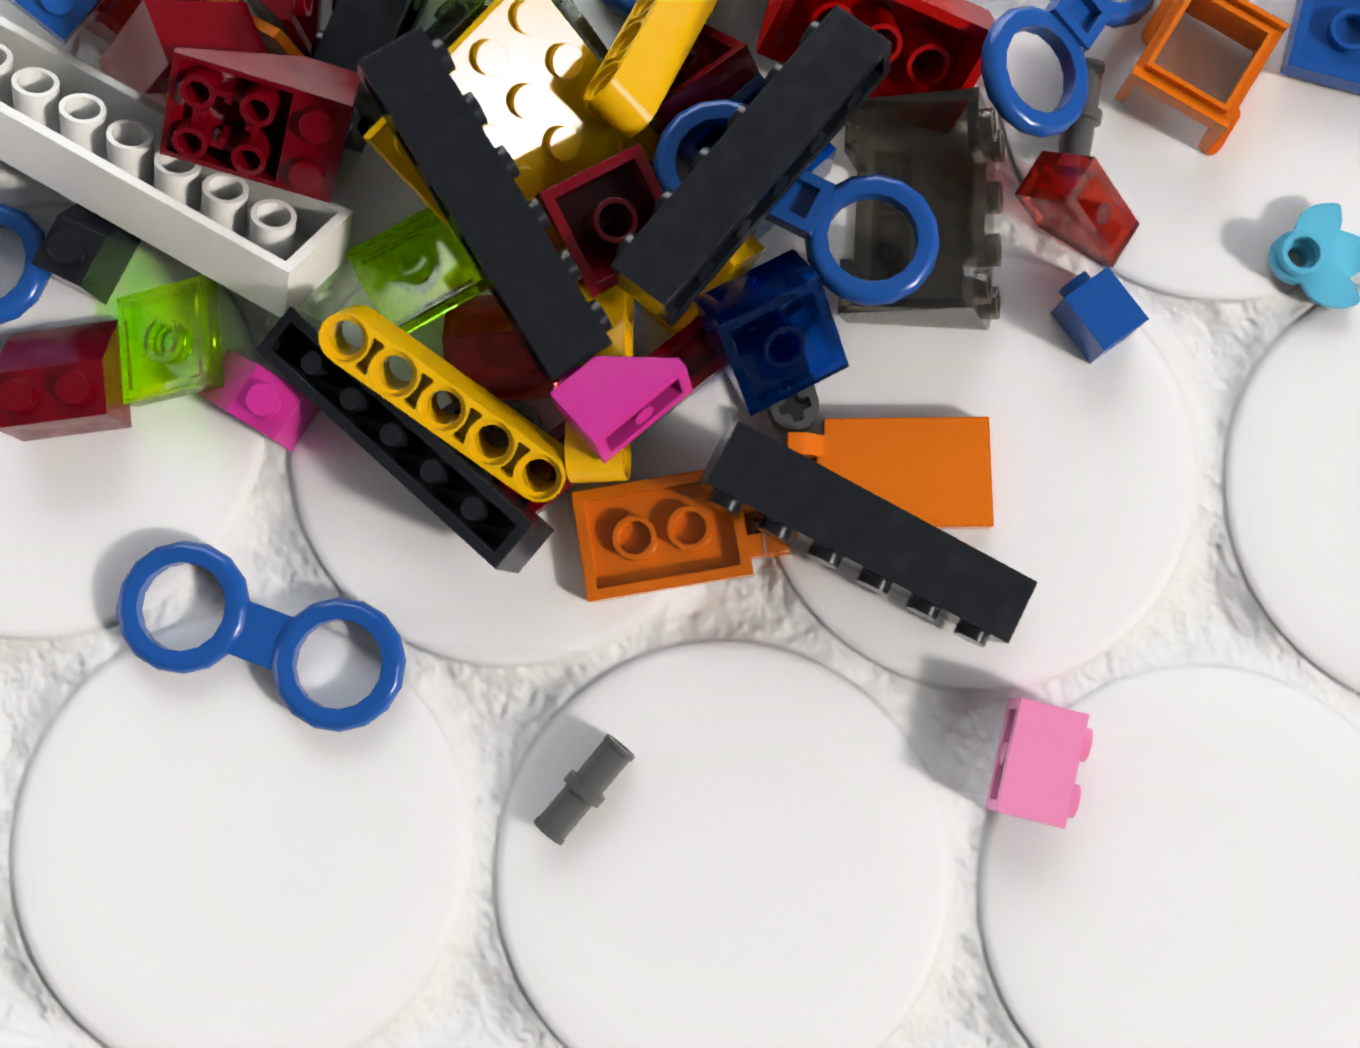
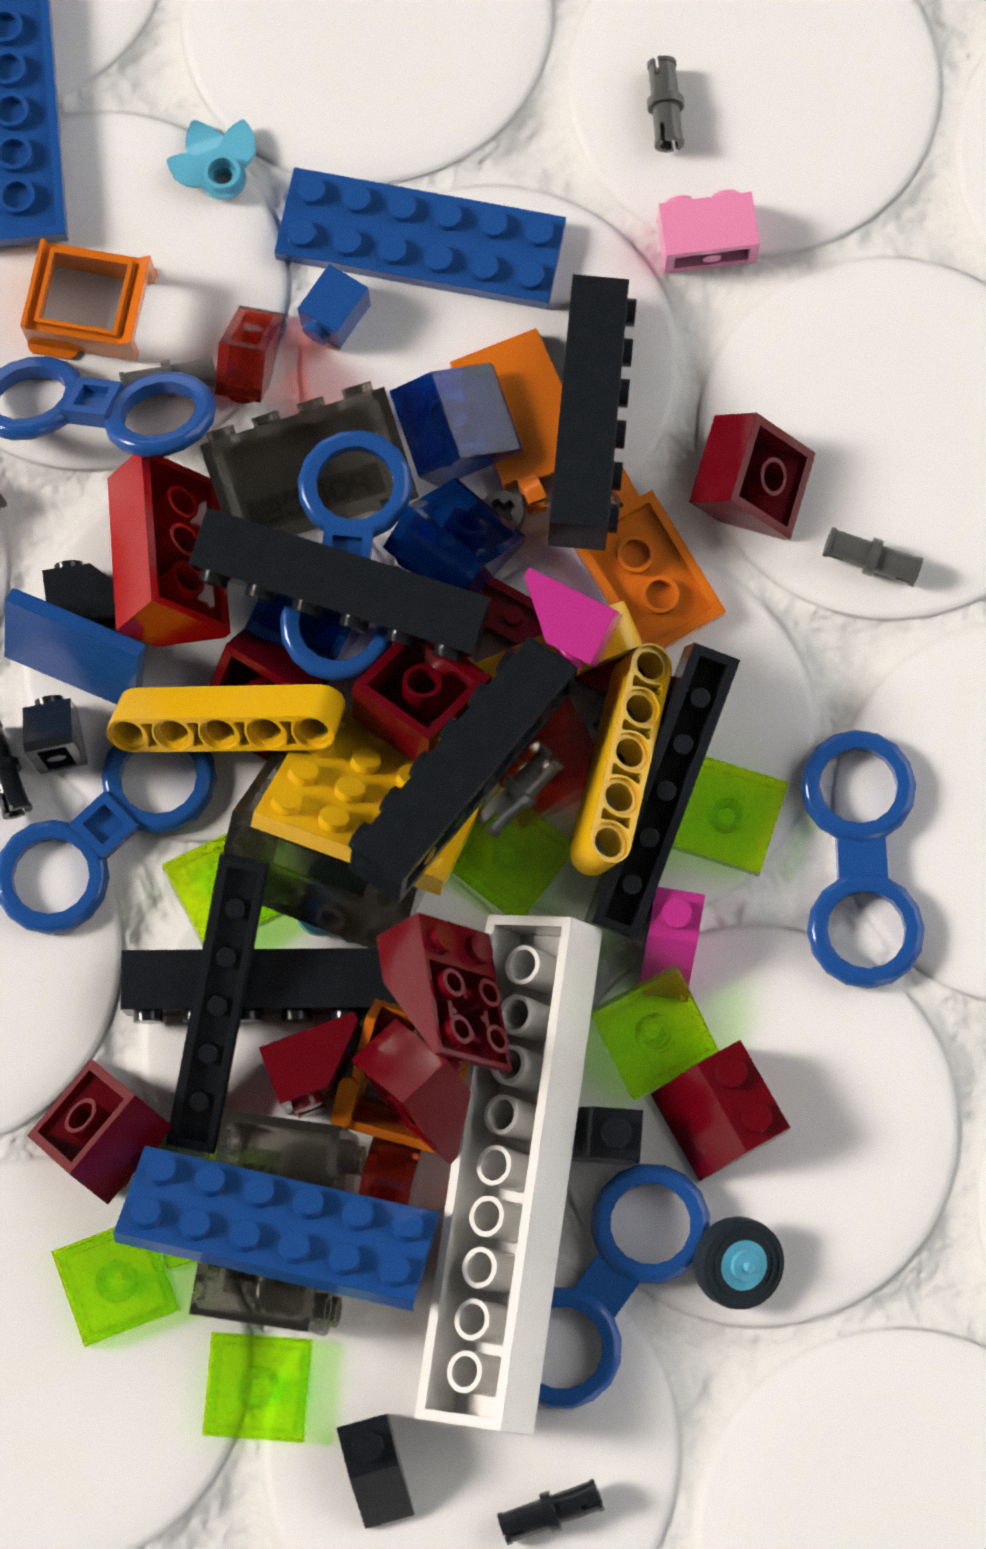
camera: 110 degrees left, 5 degrees down
(362, 516) = (731, 816): none -> clear neon green plate
(463, 289) = (519, 791): none -> dark grey pin
(728, 693) = (752, 475): none -> dark red slope
(912, 388) = (455, 422): none -> clear blue slope
(1148, 445) = (421, 238): none -> blue plate
(1215, 780) = (665, 103): none -> dark grey pin

